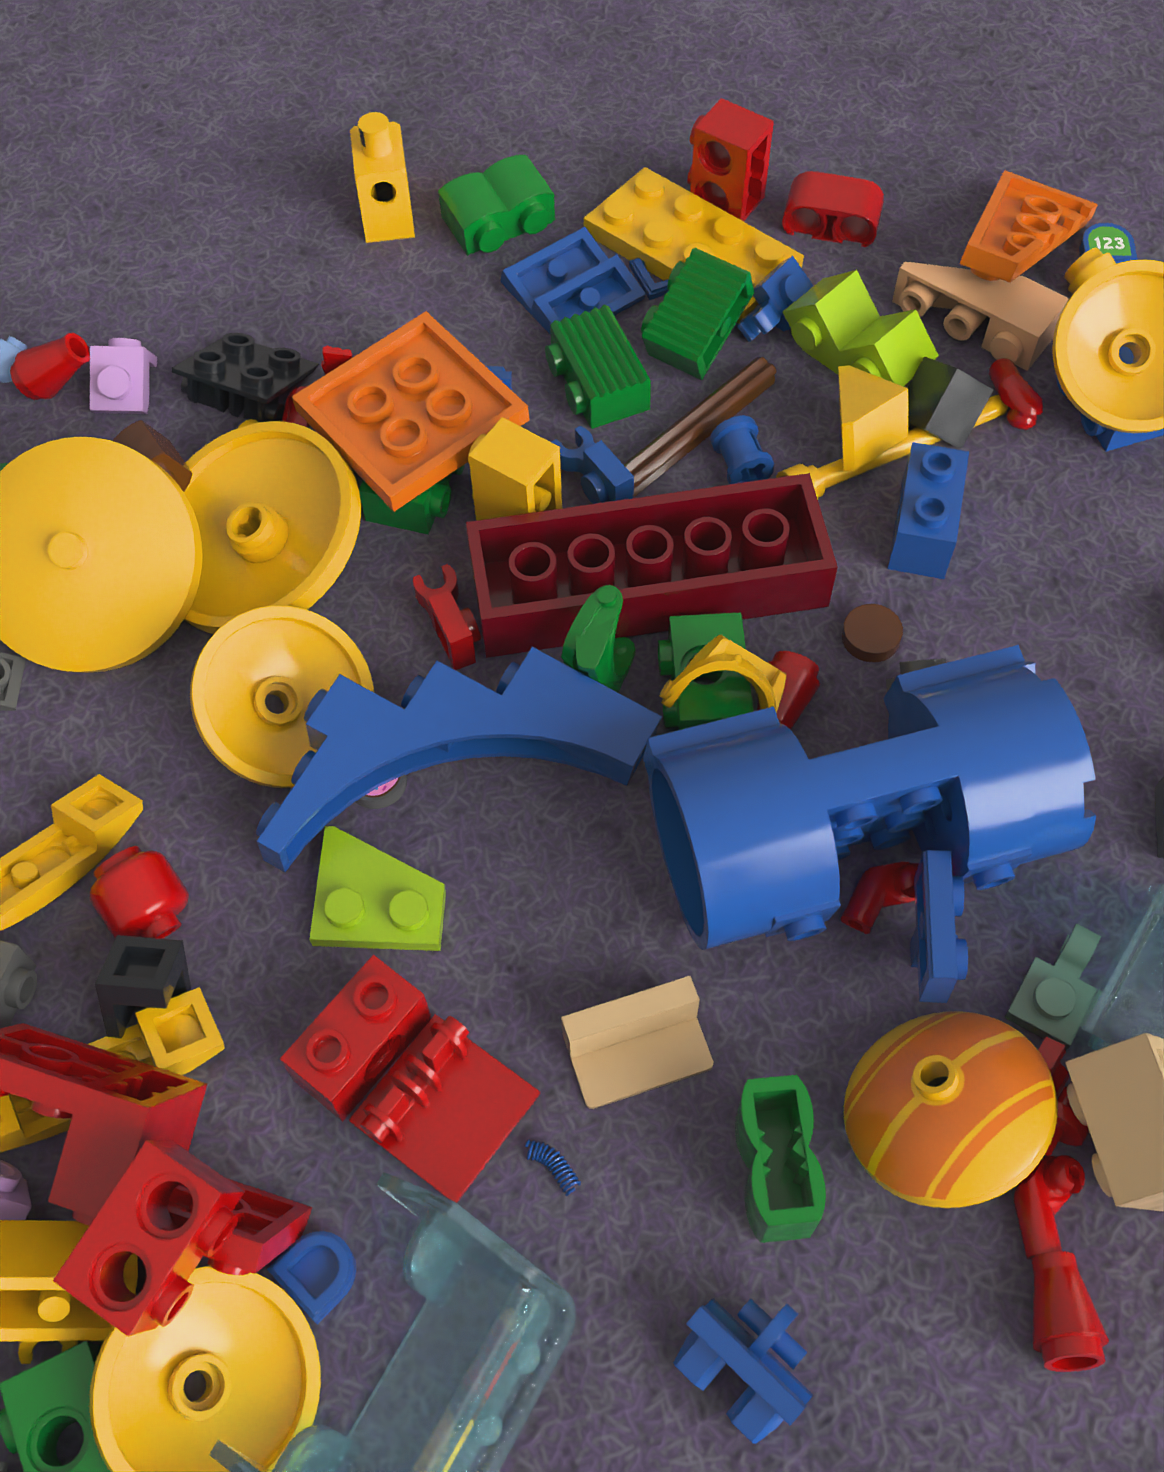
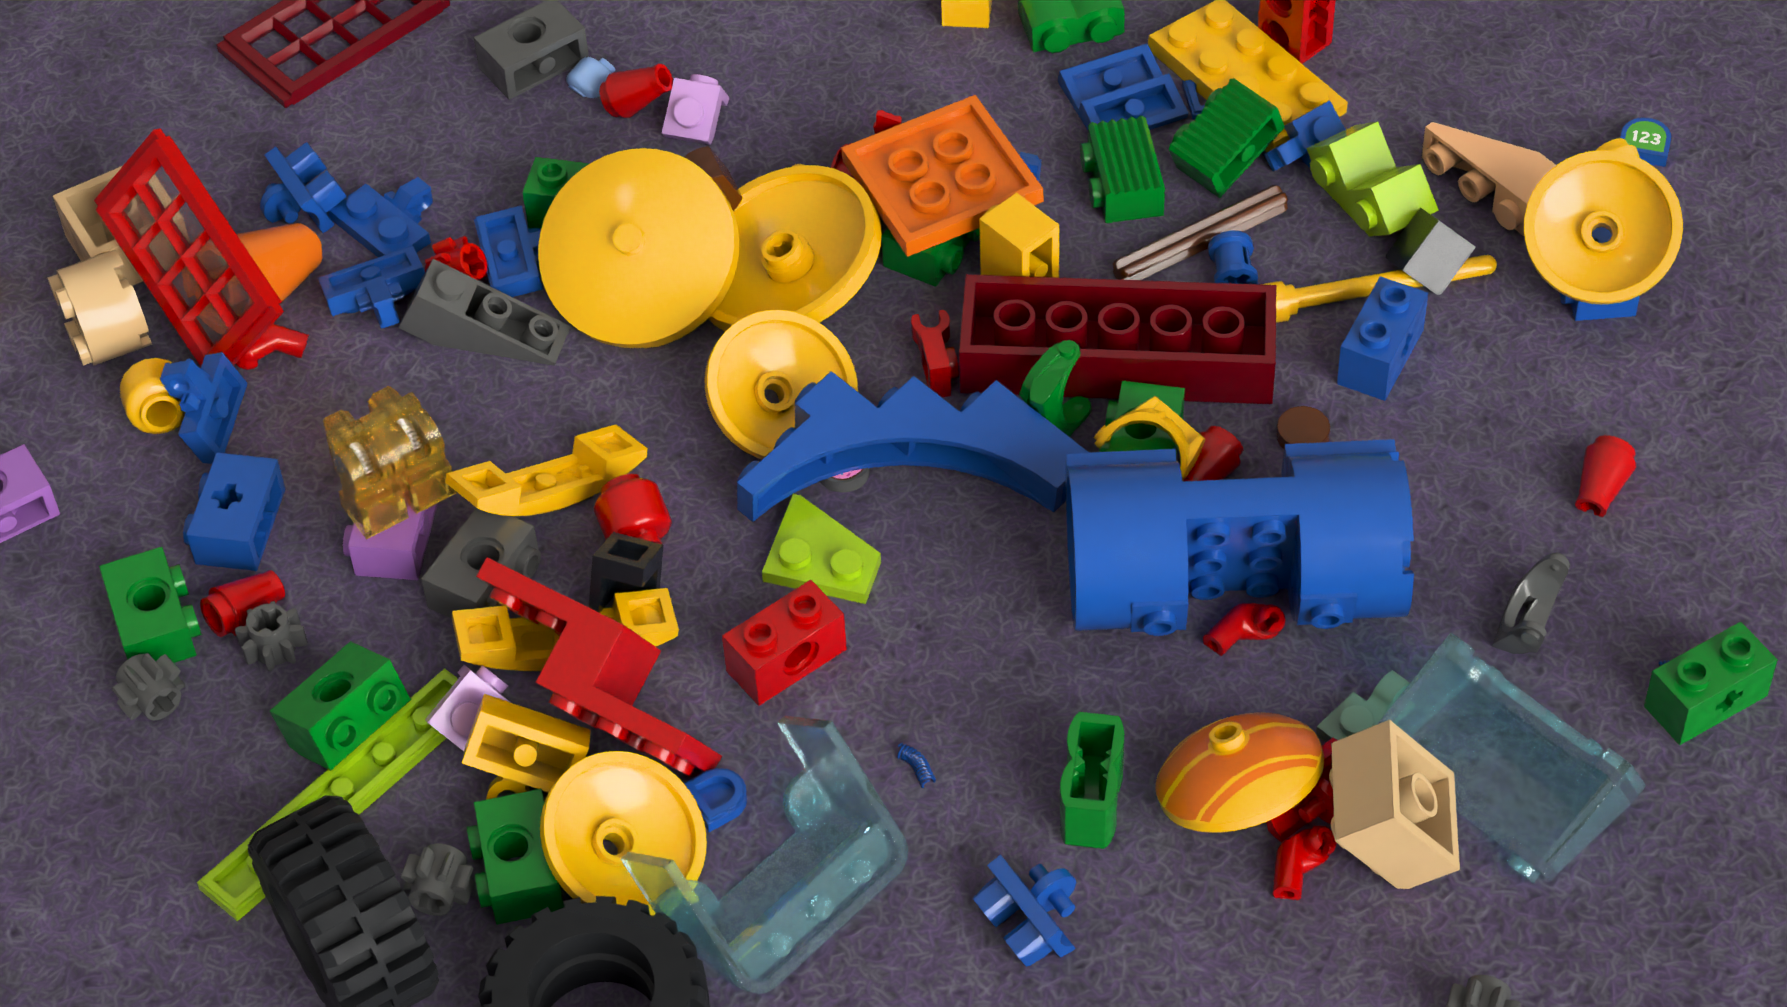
camera: 15 degrees right, 10 degrees down
(139, 1223) = (600, 695): red brick -> none
(242, 376) = (802, 126): black hinge -> none
(445, 1107) = (849, 695): red hinge -> none
(603, 473) = (1099, 253): blue plate -> none
(637, 1042) = (1006, 688): tan panel -> none
(833, 208) = (1389, 63): red beam -> none
(870, 416) = (1351, 251): yellow slope -> none
(934, 944) = (1265, 658): blue hinge -> none
(1016, 394) = (1504, 257): red arm -> none
(1022, 227) = (1558, 106): orange wing -> none
(1064, 1316) = (1285, 934): red cone -> none

